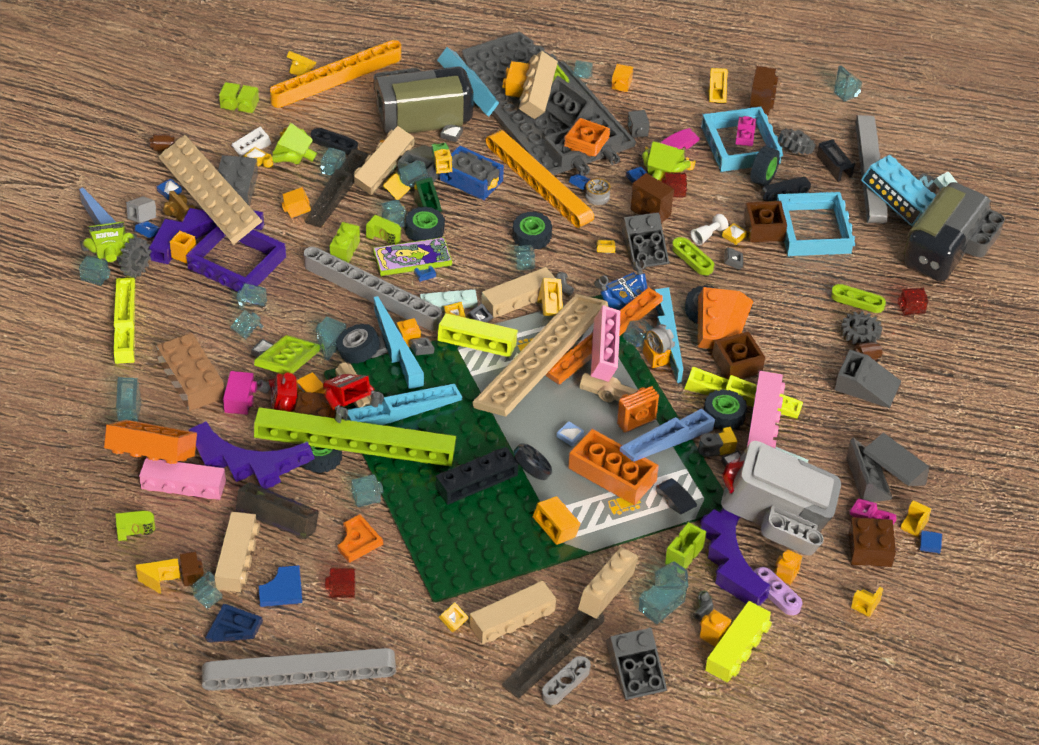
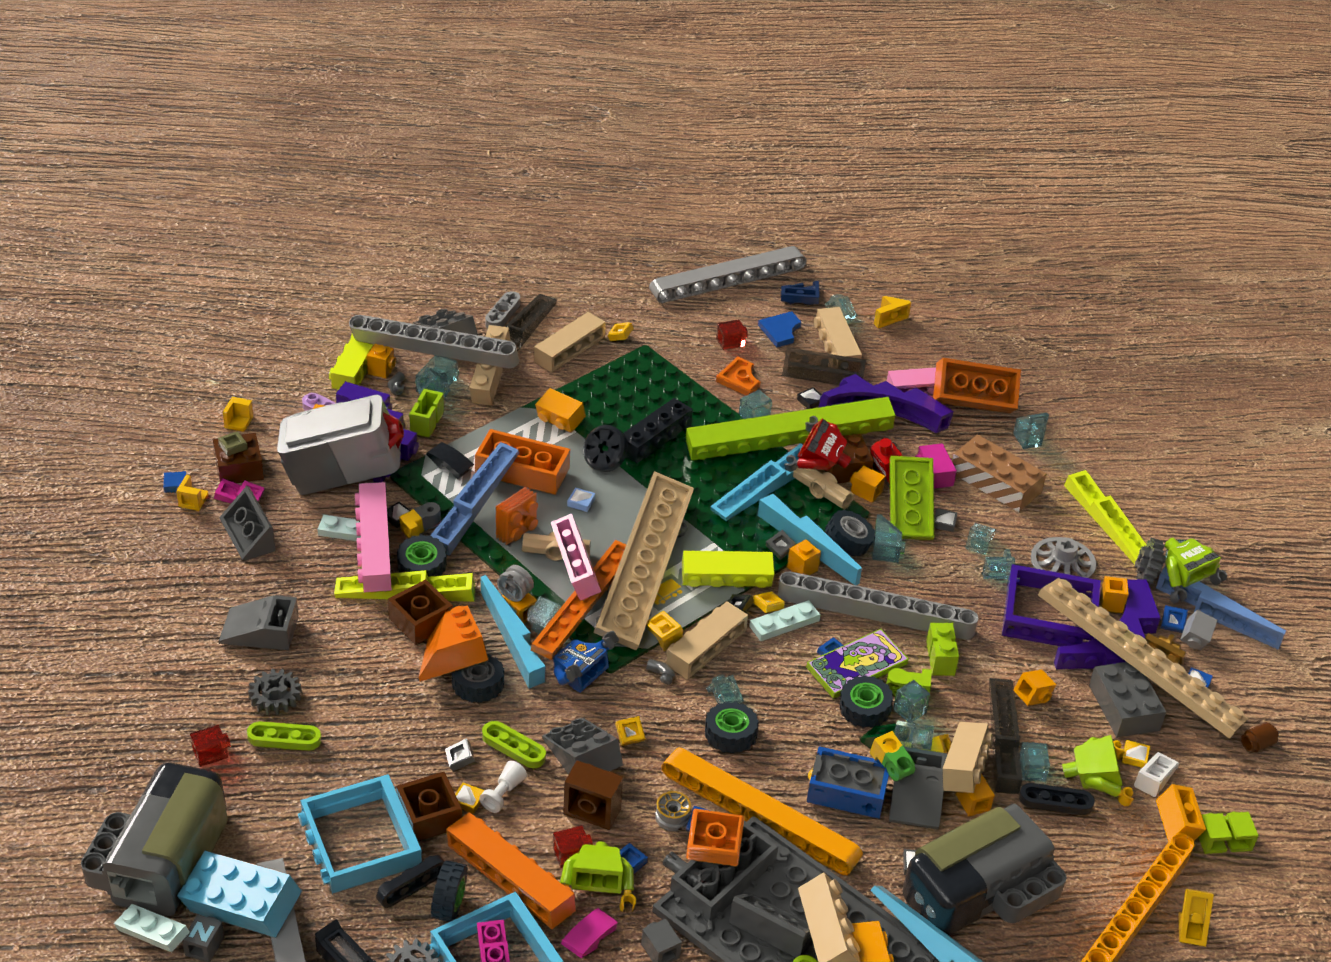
camera: 160 degrees right, 5 degrees down
(134, 523) = (942, 343): lime leg -> none
(191, 293) = (1063, 553): none -> light grey wheel
(191, 568) = (865, 319): reddish brown brick -> none
(263, 106) = (1180, 812): none -> light orange brick
(304, 495) = (809, 398): none -> black tile
(665, 595) = (434, 341): none -> light grey beam
(720, 172) = (511, 869): none -> orange brick
(871, 349) = (264, 662): reddish brown brick -> none
(878, 529) = (232, 443): none -> olive tile
(898, 461) = (217, 531): dark grey slope -> none

